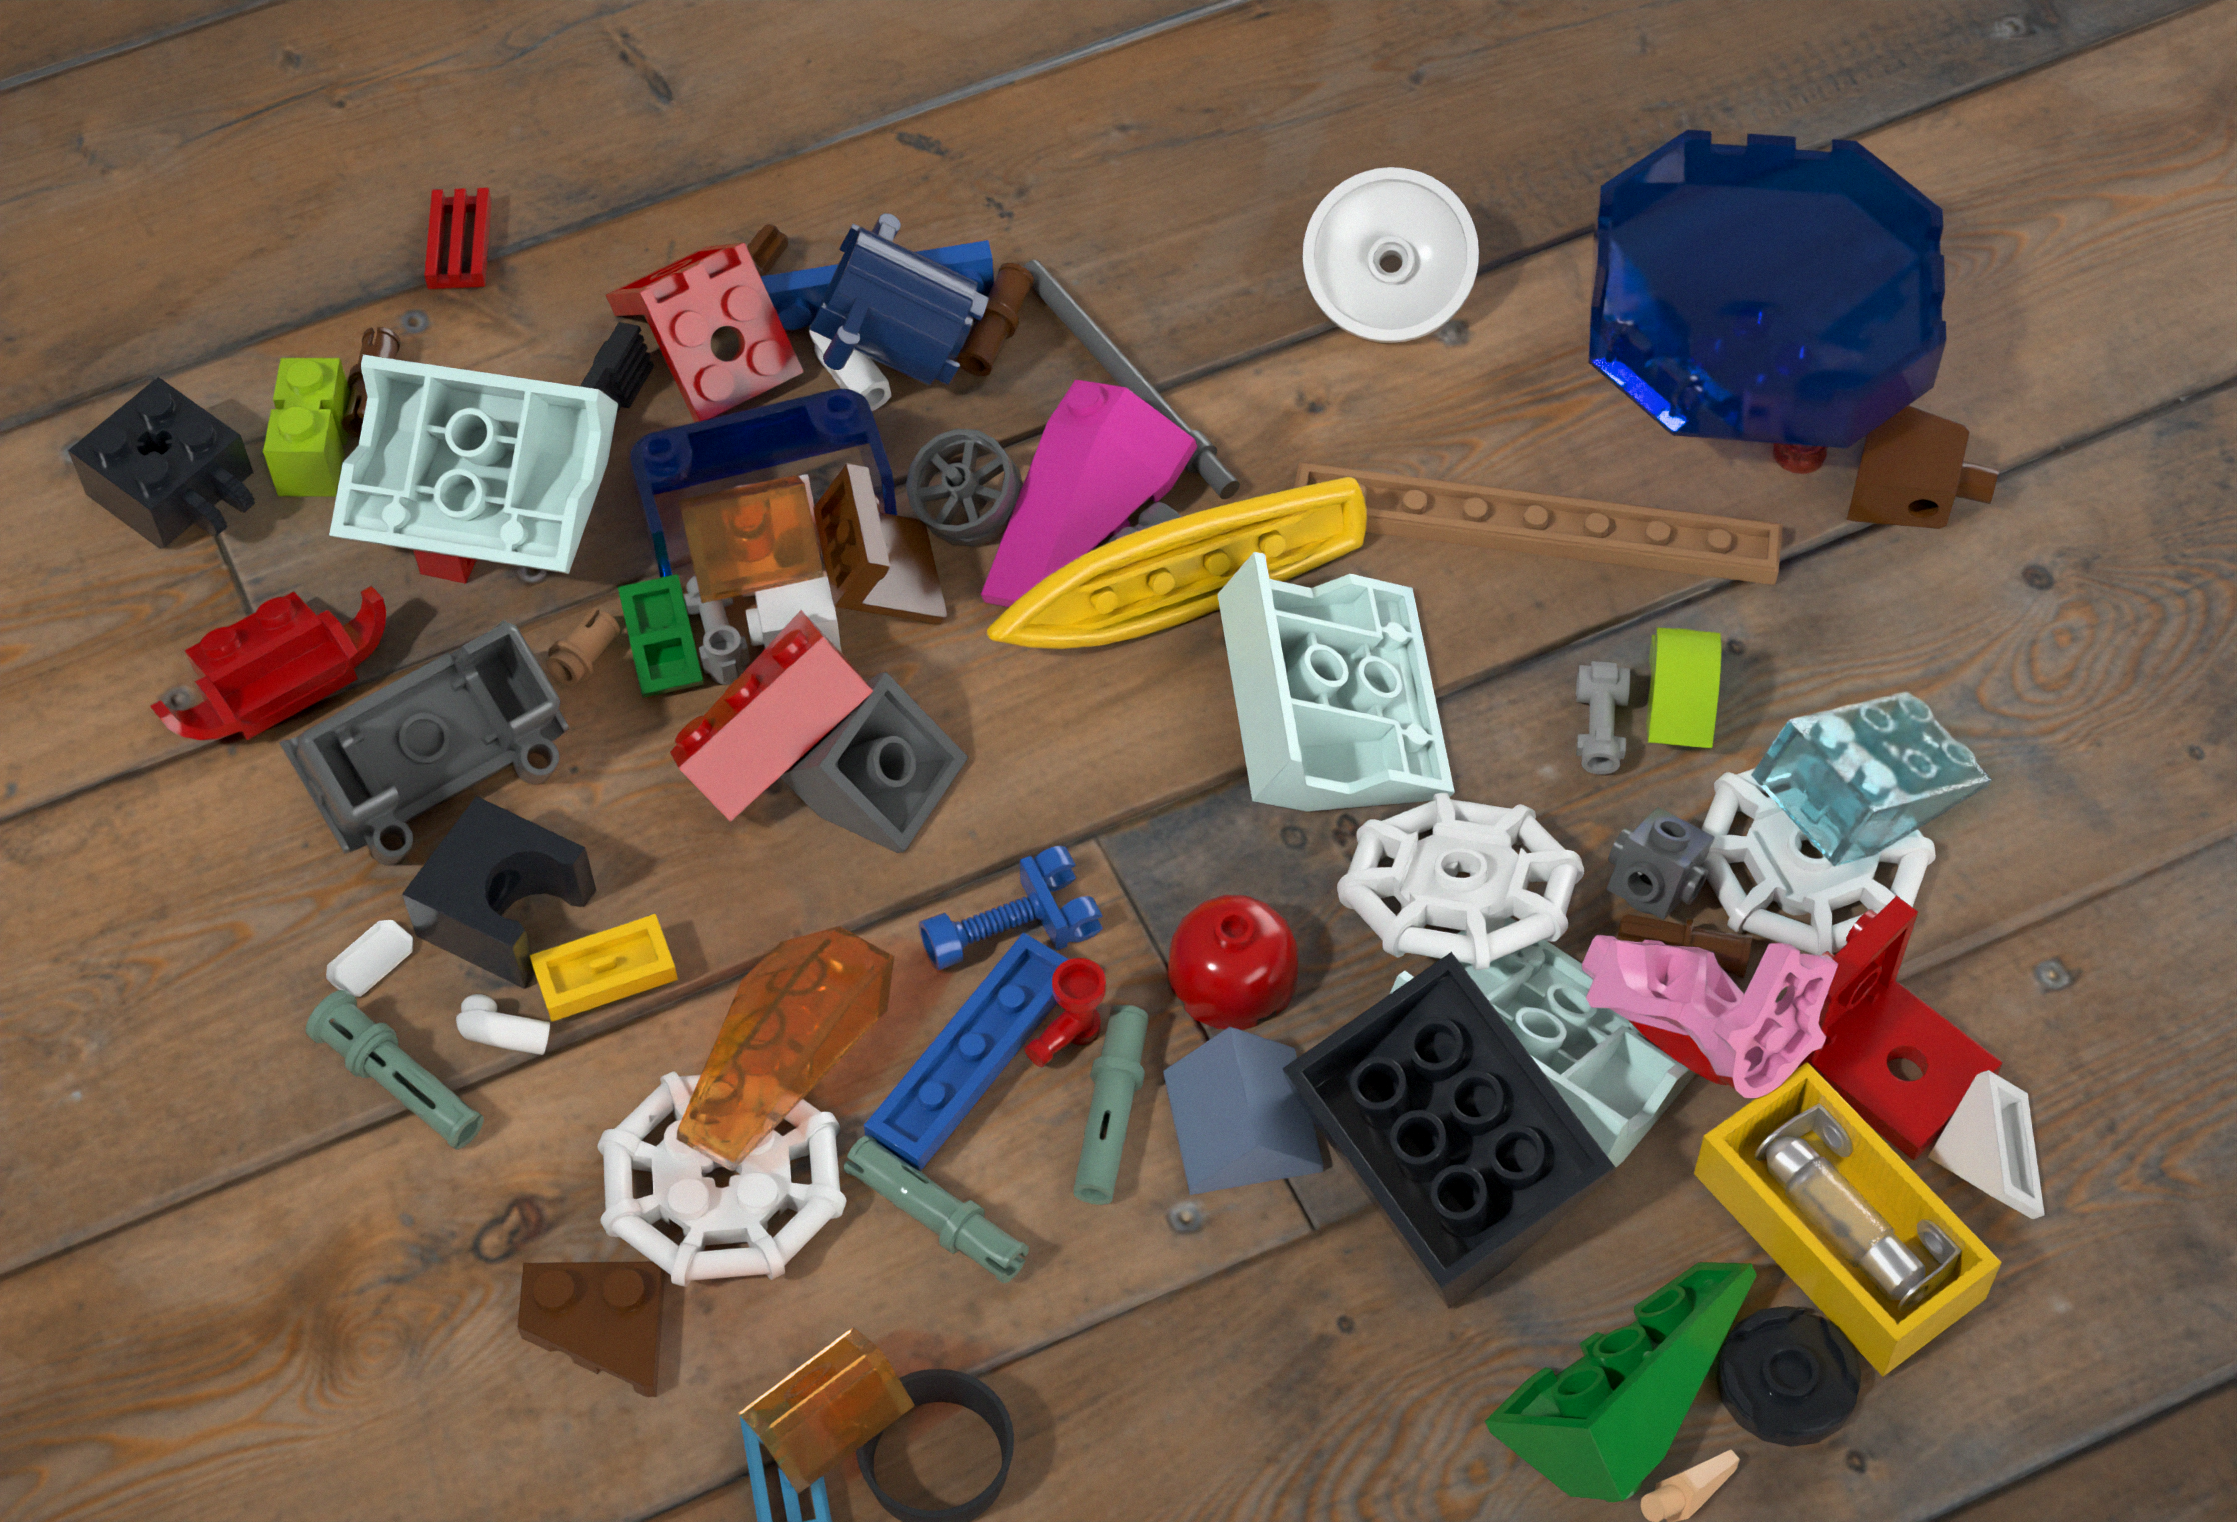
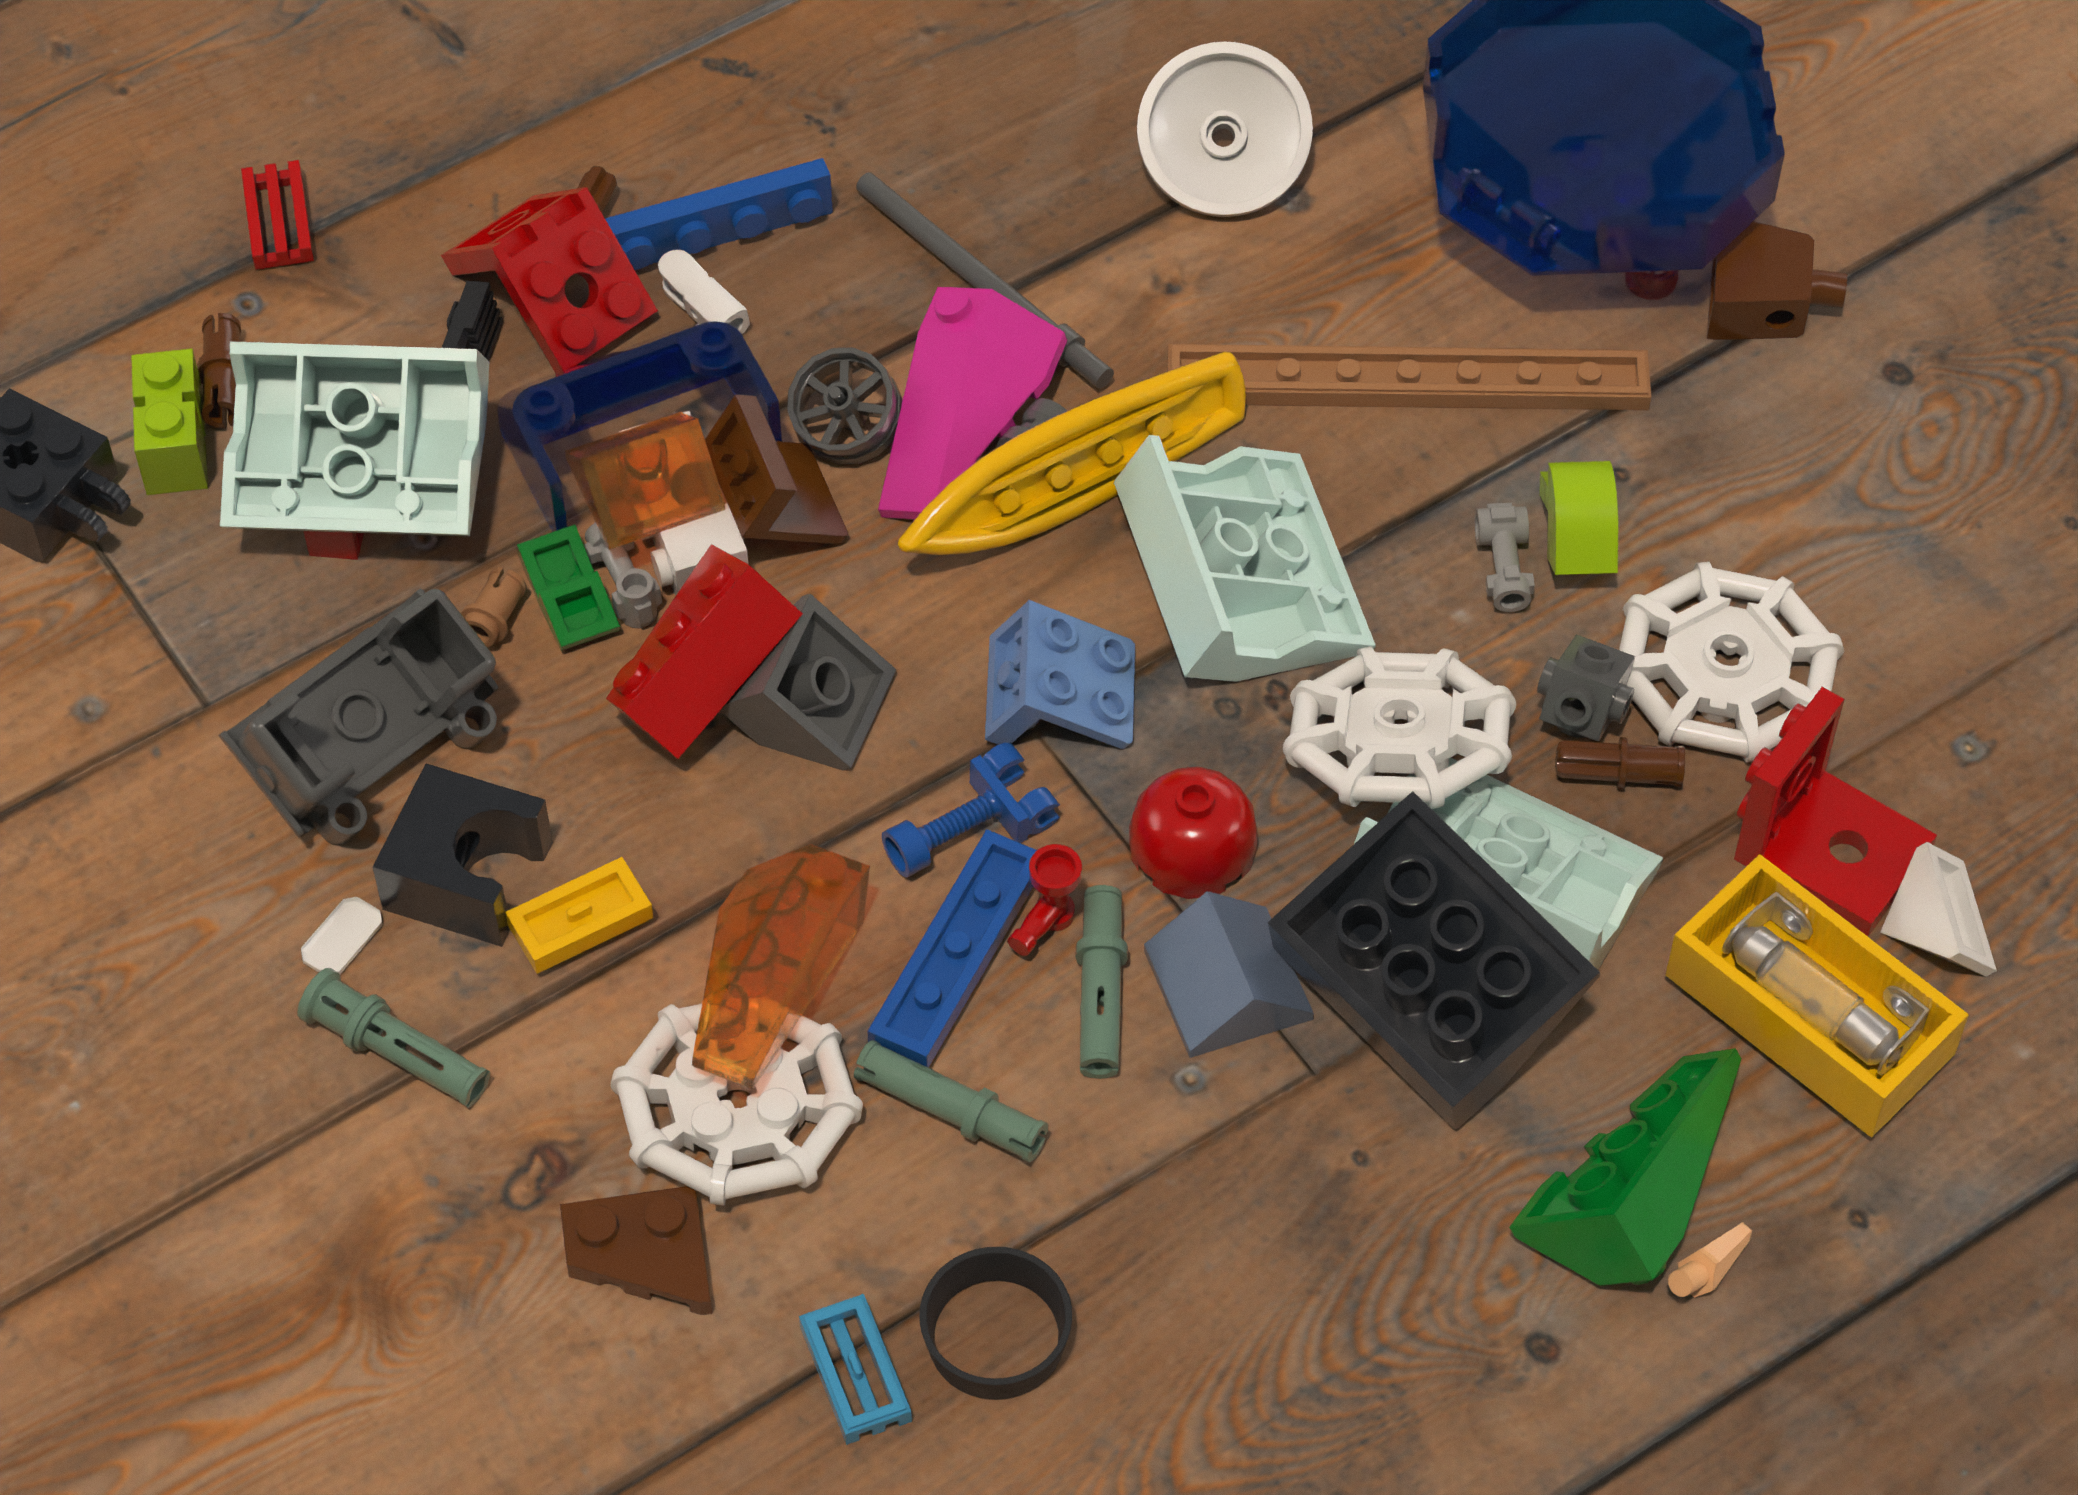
camera: 10 degrees left, 0 degrees up
(273, 666) = (185, 662): red plate -> none
(484, 1025) = (470, 984): white arm -> none
(827, 1408) = (889, 1295): clear orange slope -> none
(896, 306) = (746, 234): dark blue container -> none
(998, 320) = (840, 236): reddish brown pin -> none
(1129, 784) = (1059, 673): none -> medium blue bracket
(1702, 1017) = (1654, 828): bright pink hips -> none
(1788, 1376) = (1783, 1149): black tile -> none
(1867, 774) = (1770, 579): clear light blue slope -> none

